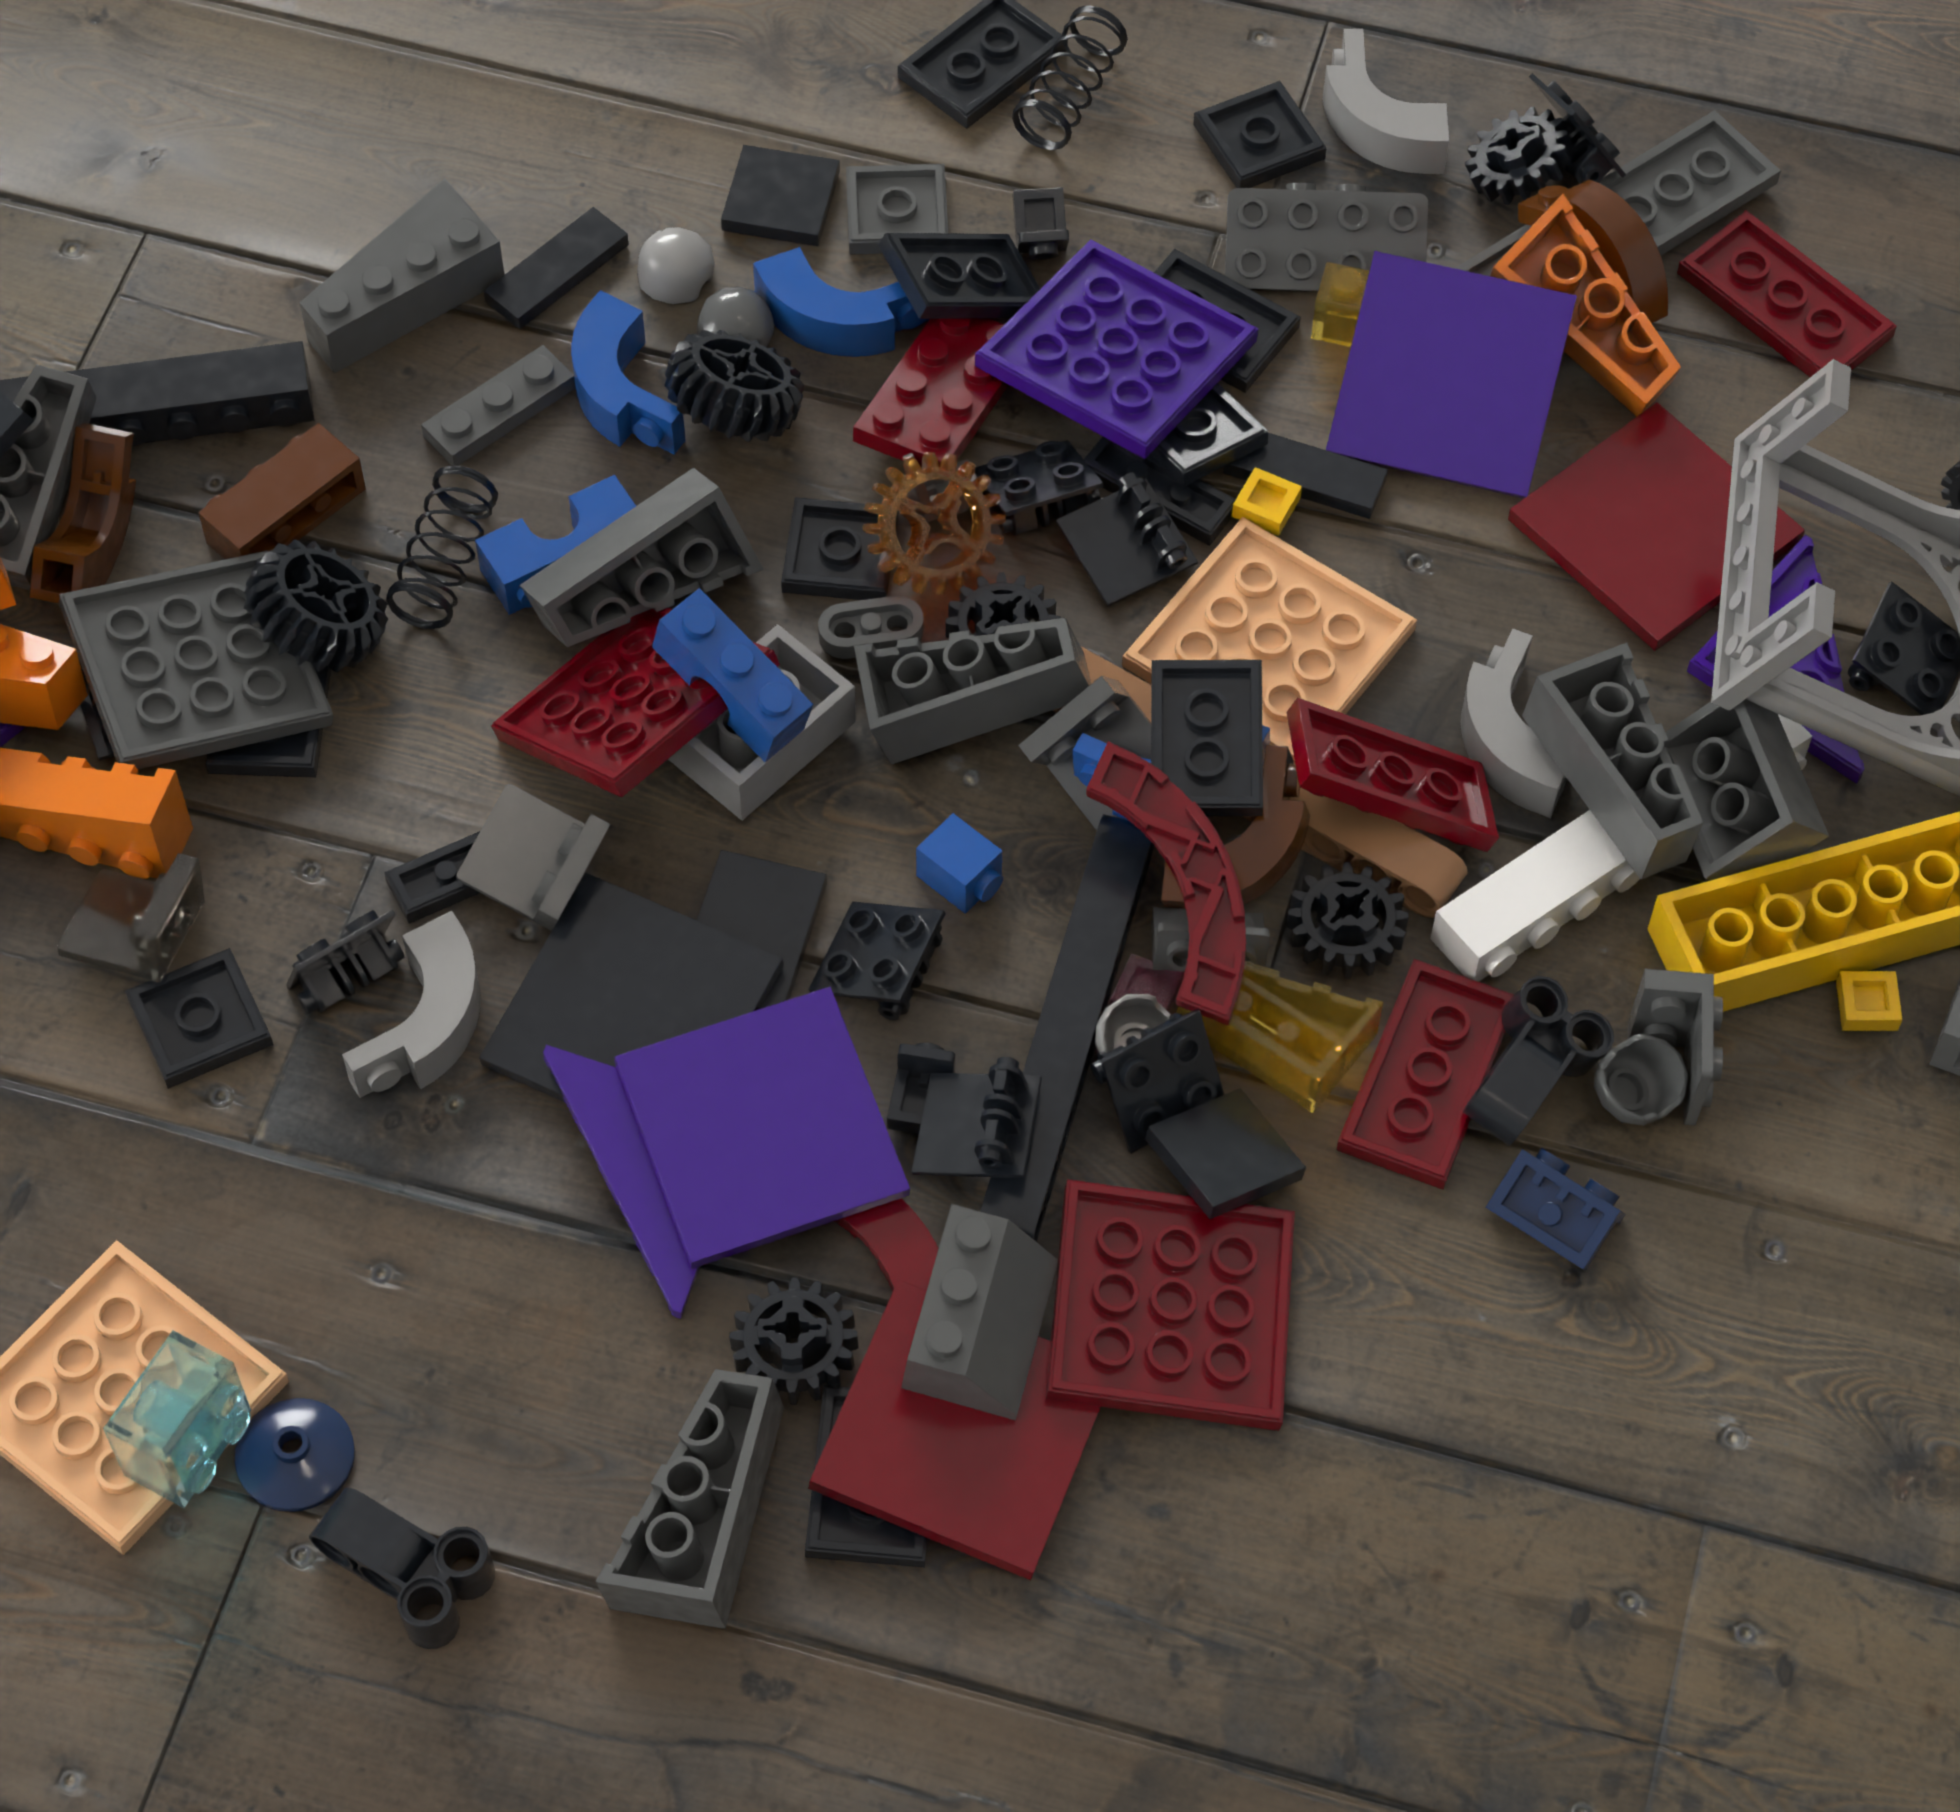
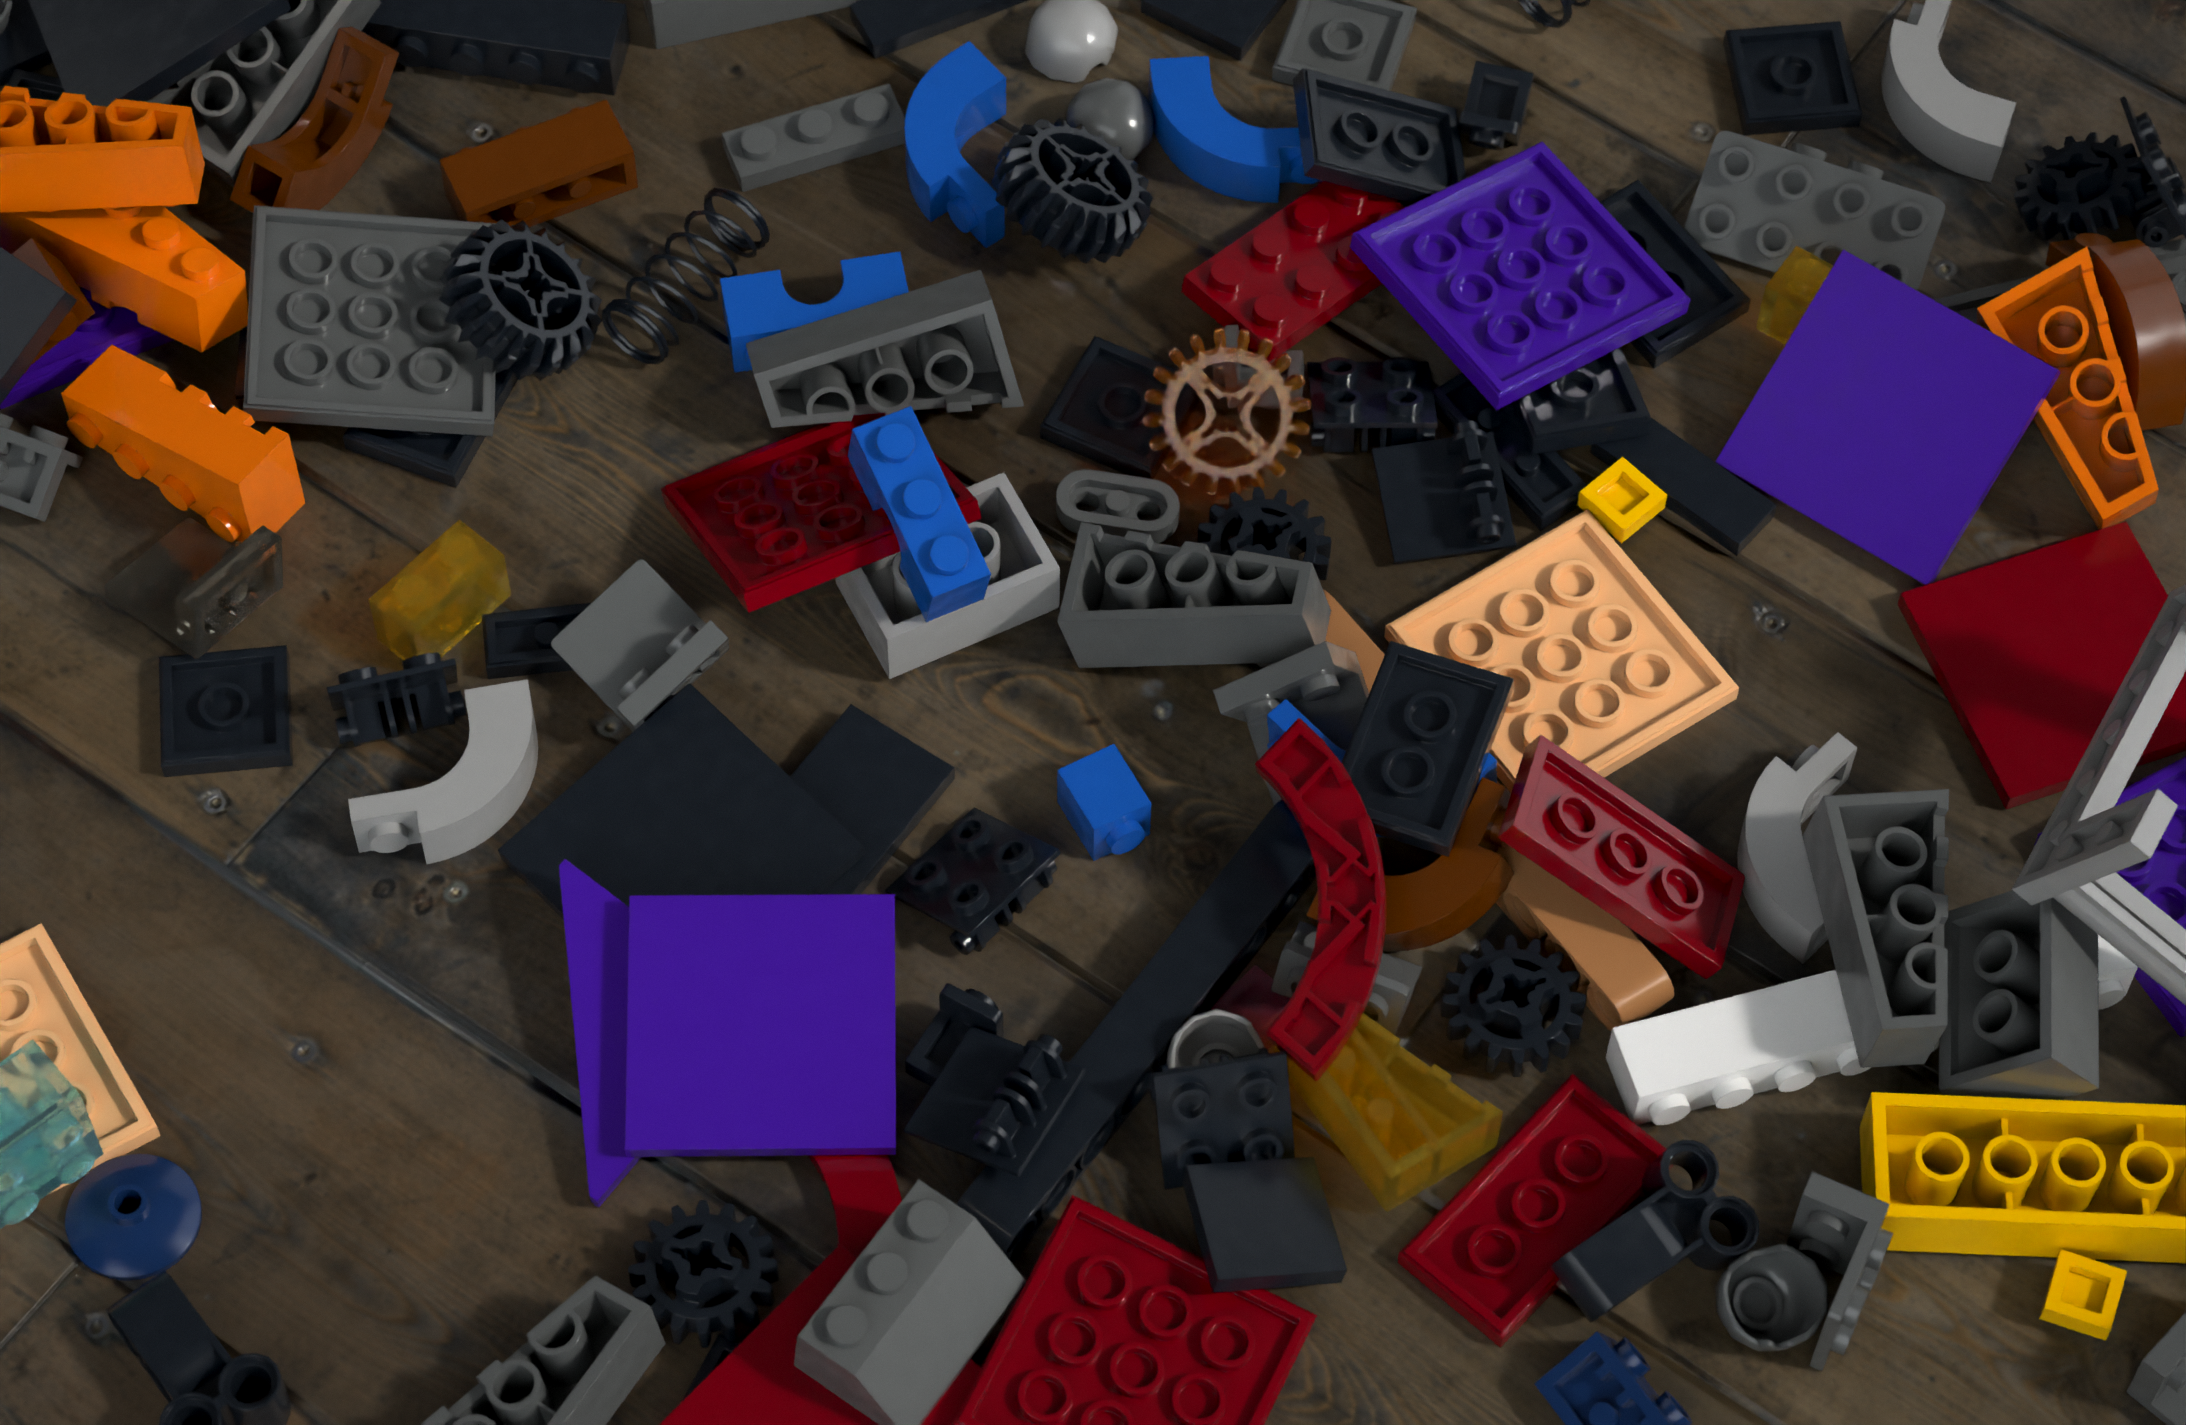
camera: 20 degrees right, 0 degrees up
(345, 866) = (440, 594): none -> clear yellow brick

